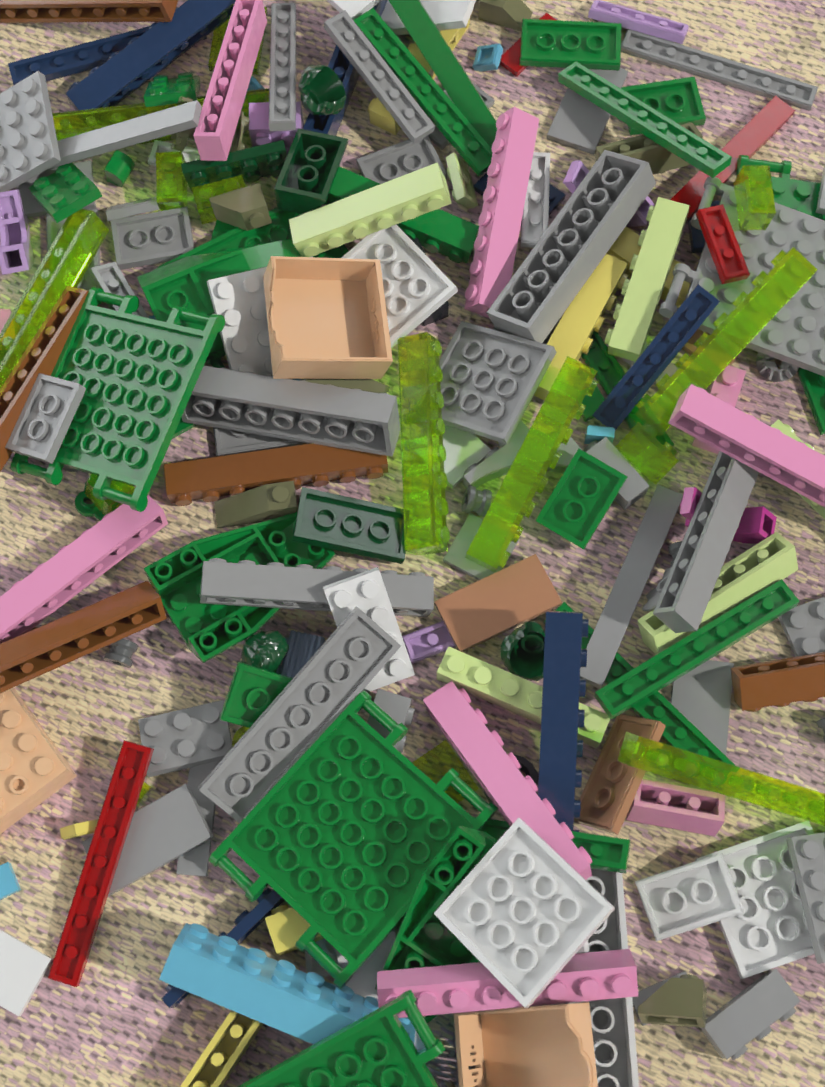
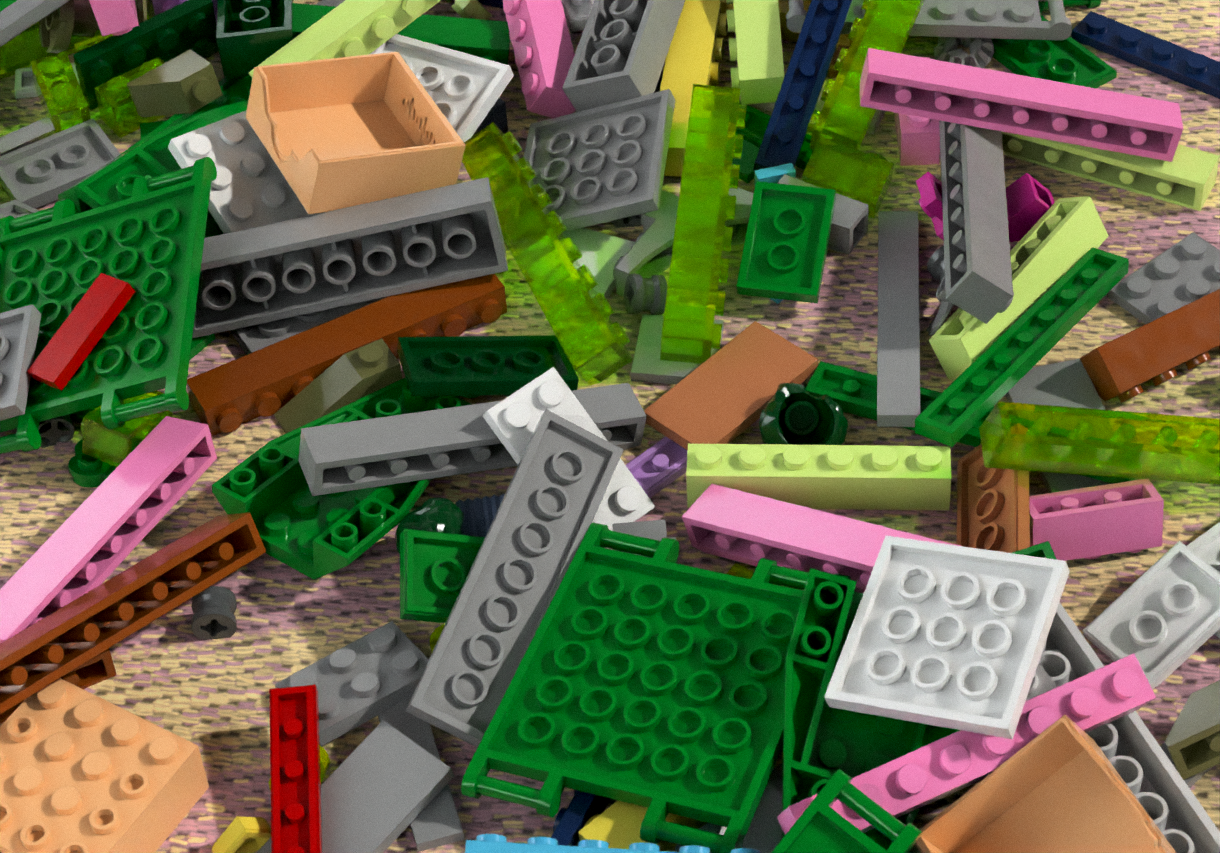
camera: 20 degrees left, 25 degrees down
(101, 419) = (81, 331): none -> red tile
(562, 714) = (873, 424): dark blue brick -> none

